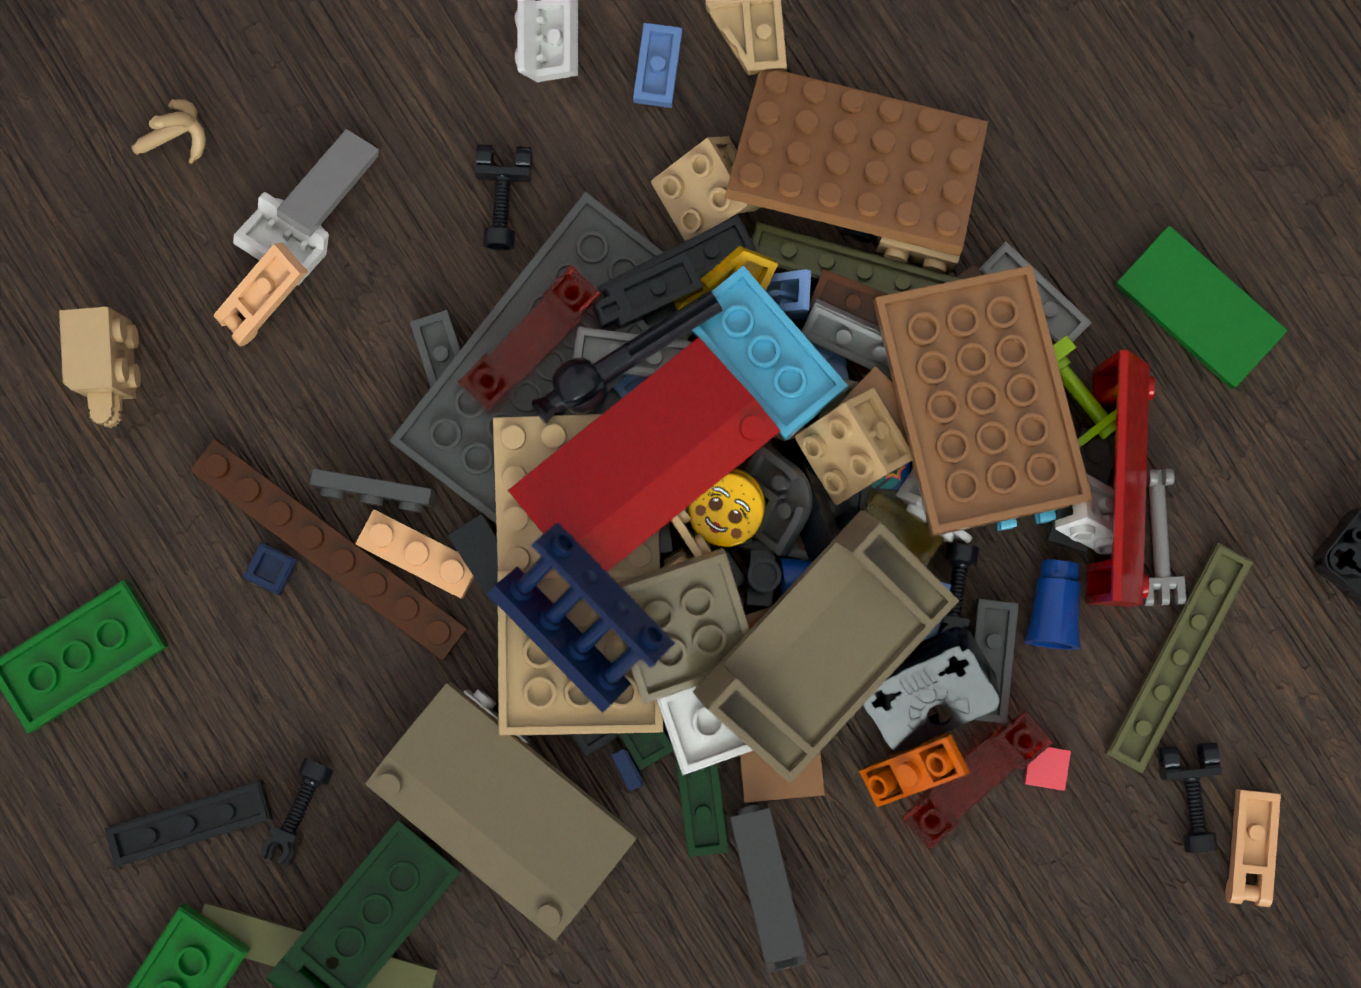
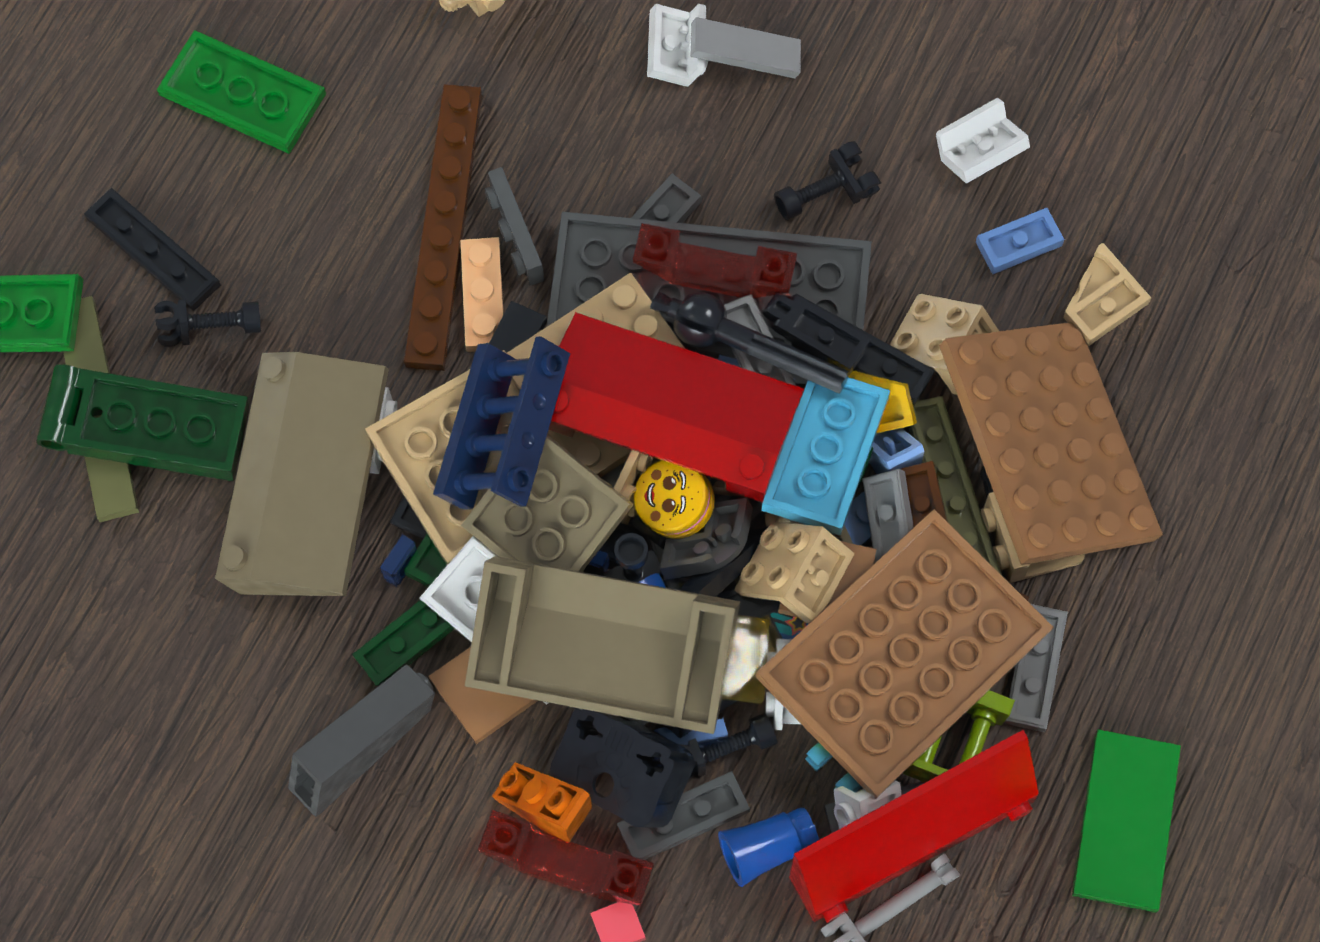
camera: 60 degrees right, 15 degrees down
(260, 293) = (620, 49): light nougat plate -> none
(270, 568) = (400, 190): dark blue tile -> none

